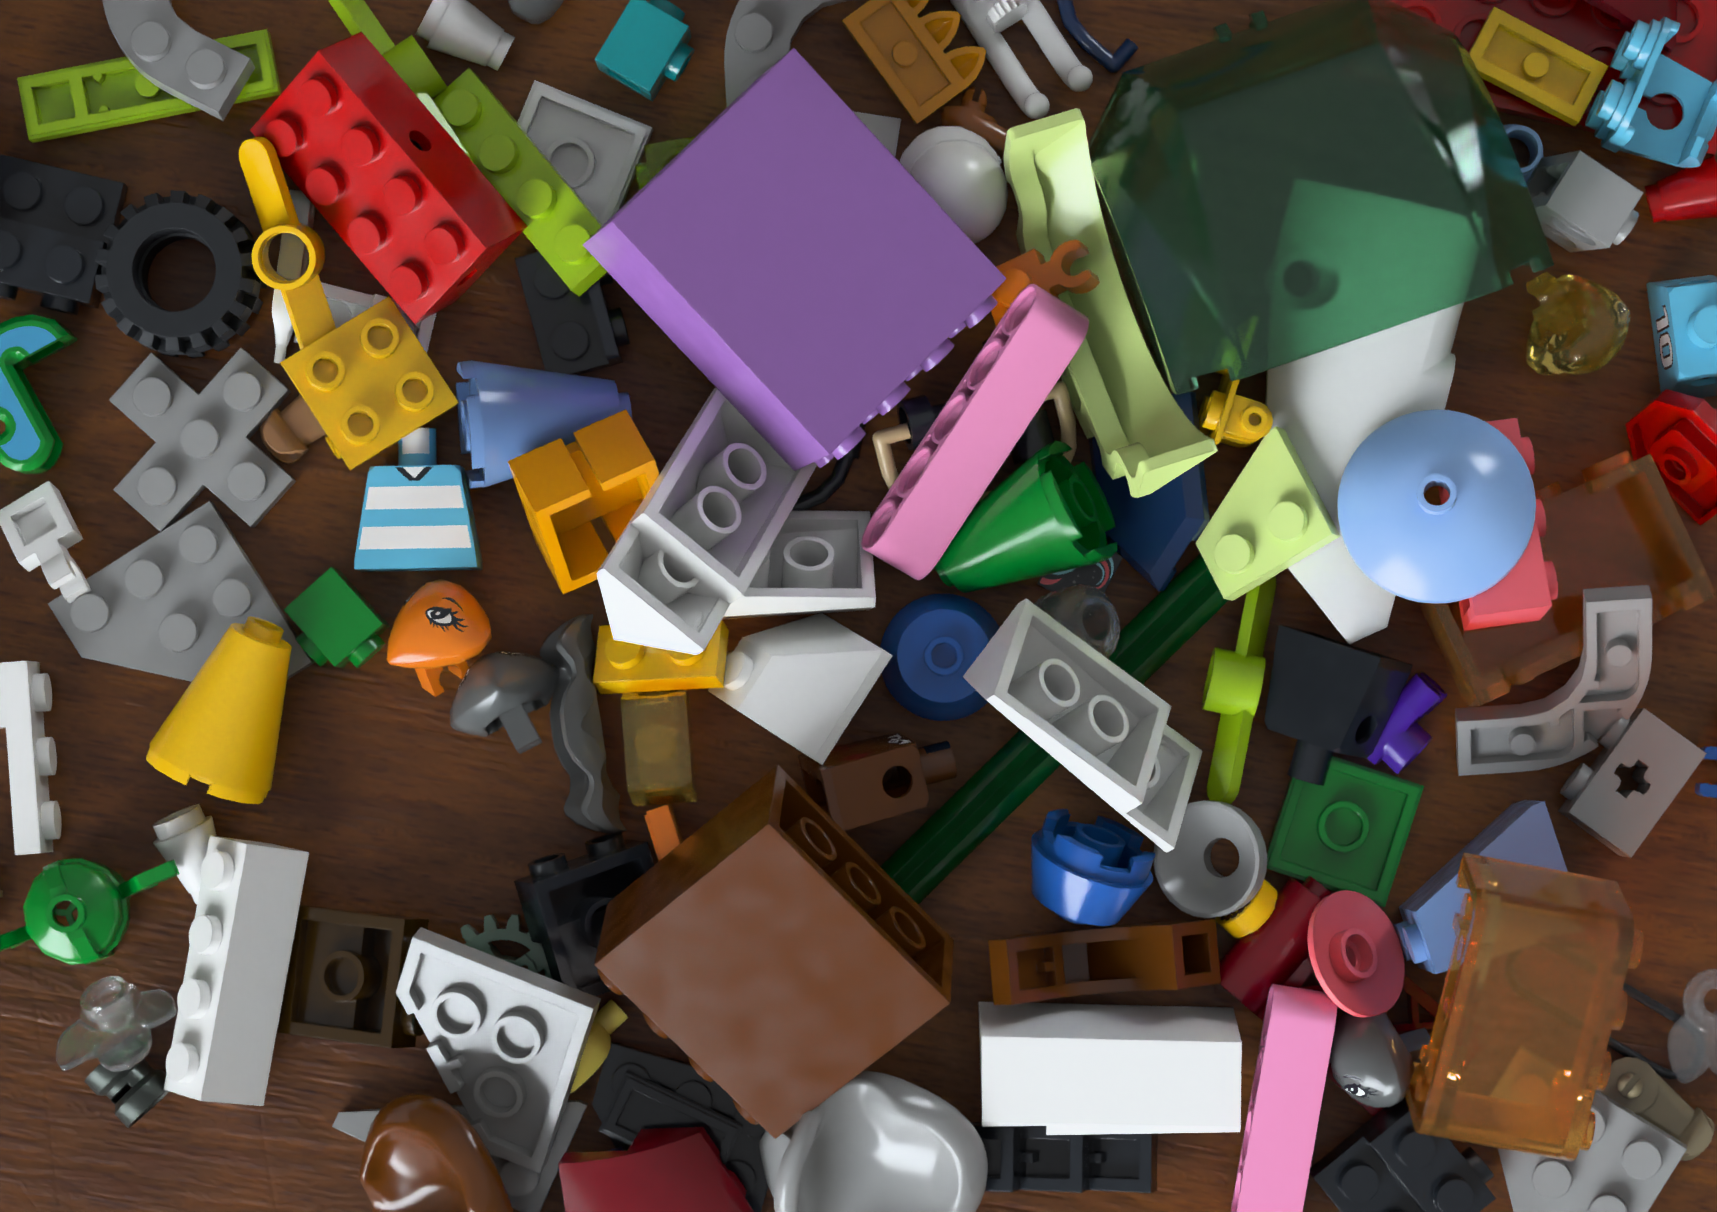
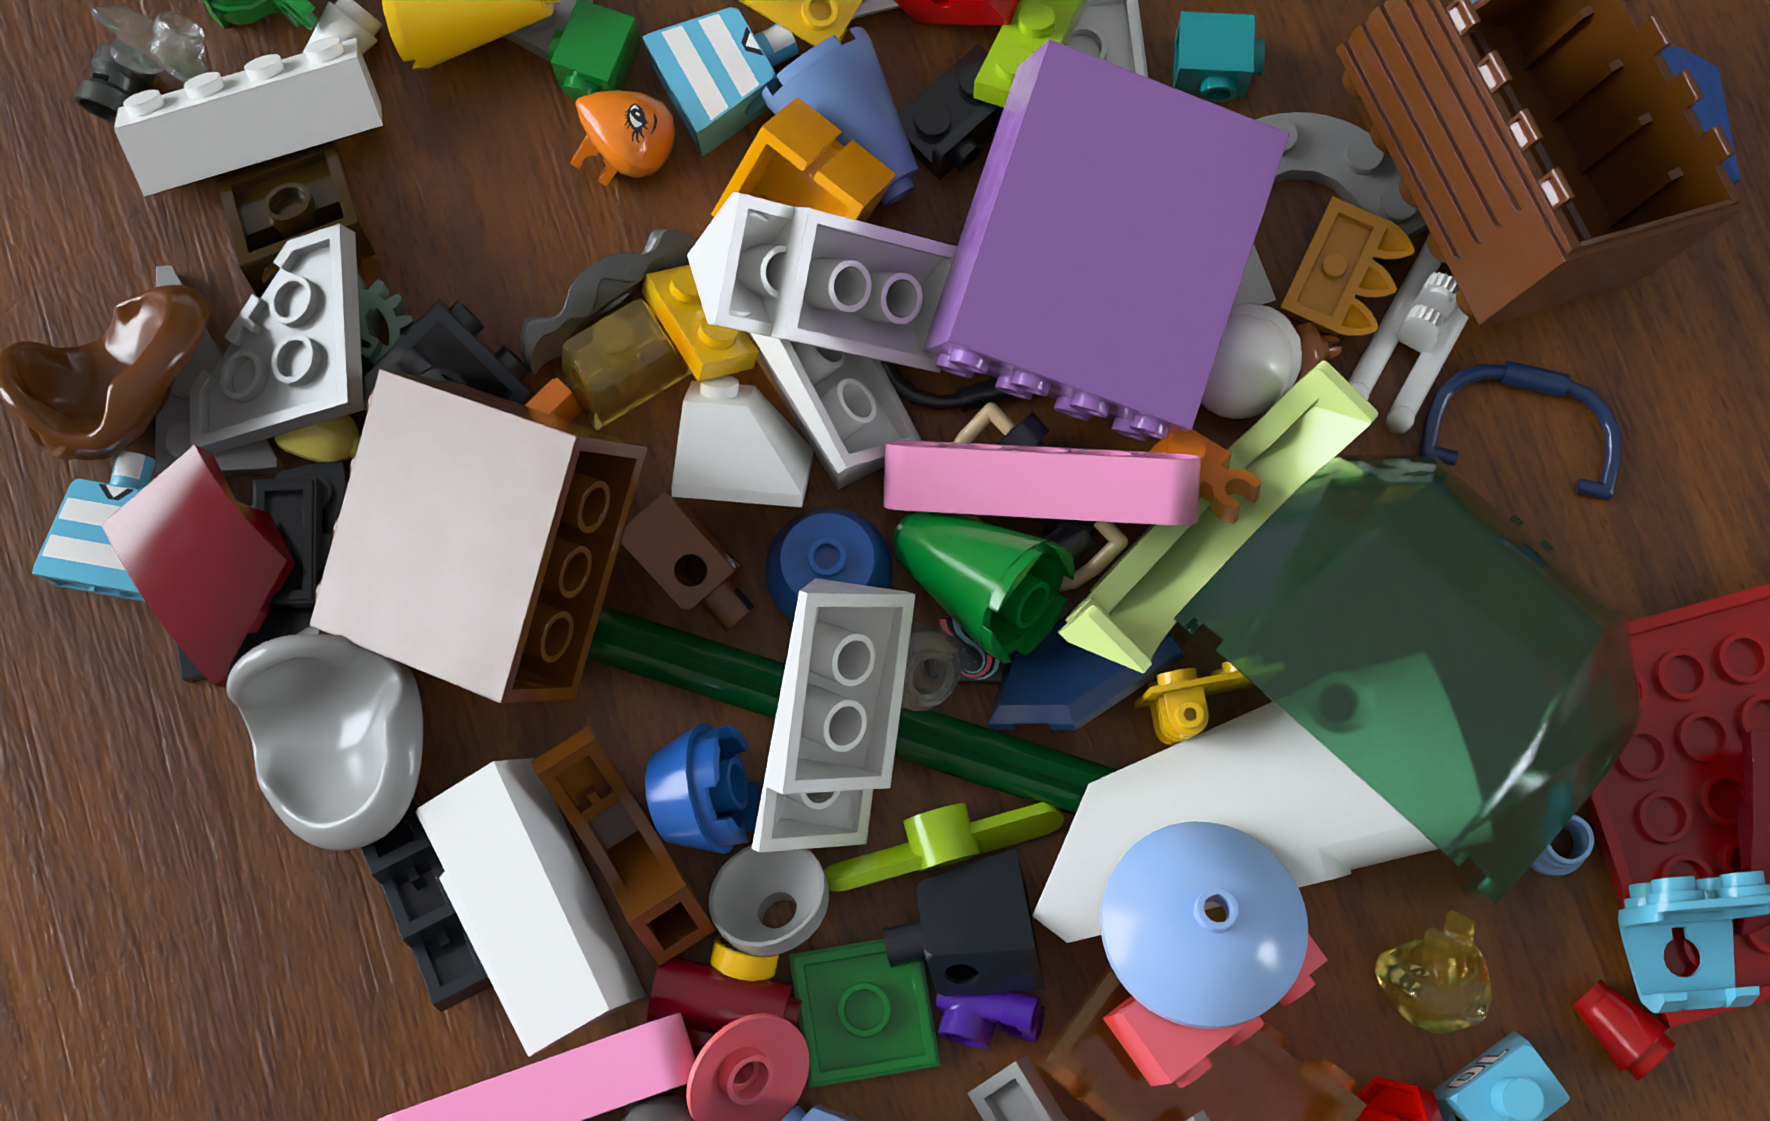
camera: 60 degrees right, 10 degrees down
(501, 693) = (599, 213): dark grey piece -> none
(1265, 520) = (1104, 779): yellowish green wing -> none
(1536, 66) = (1652, 813): yellow plate -> none
(1582, 202) = (1556, 921): light grey brick -> none

